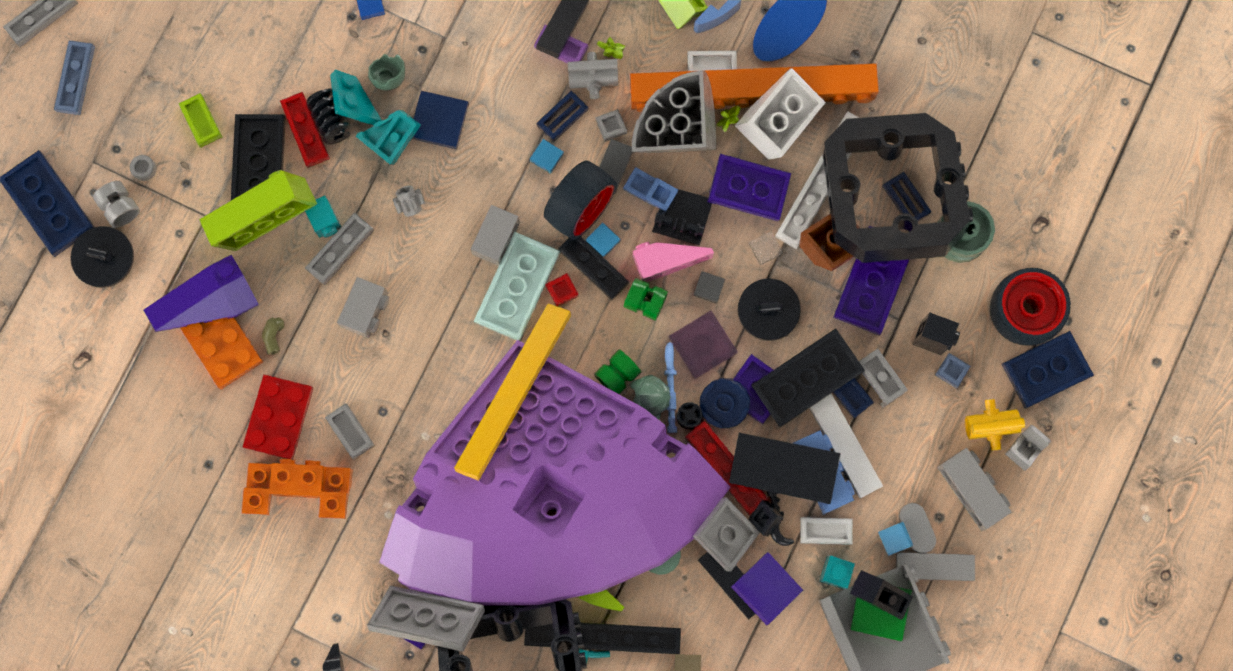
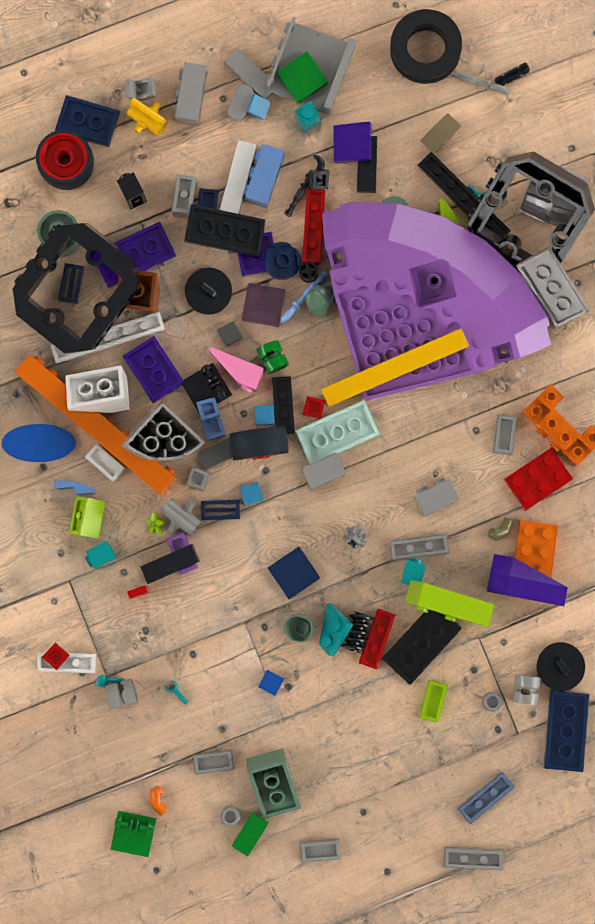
camera: 140 degrees left, 5 degrees up
(390, 136) = (331, 587): teal wing -> none
(618, 372) = (326, 330): green wheel -> none
(726, 534) = (348, 188): light grey tile -> none
(730, 117) = (126, 420): lime plant -> none
(784, 468) = (284, 193): black tile -> none
(826, 531) = (291, 145): white tile -> none
(881, 594) = (296, 82): black slope -> none
(952, 370) = (140, 166): sand blue tile -> none

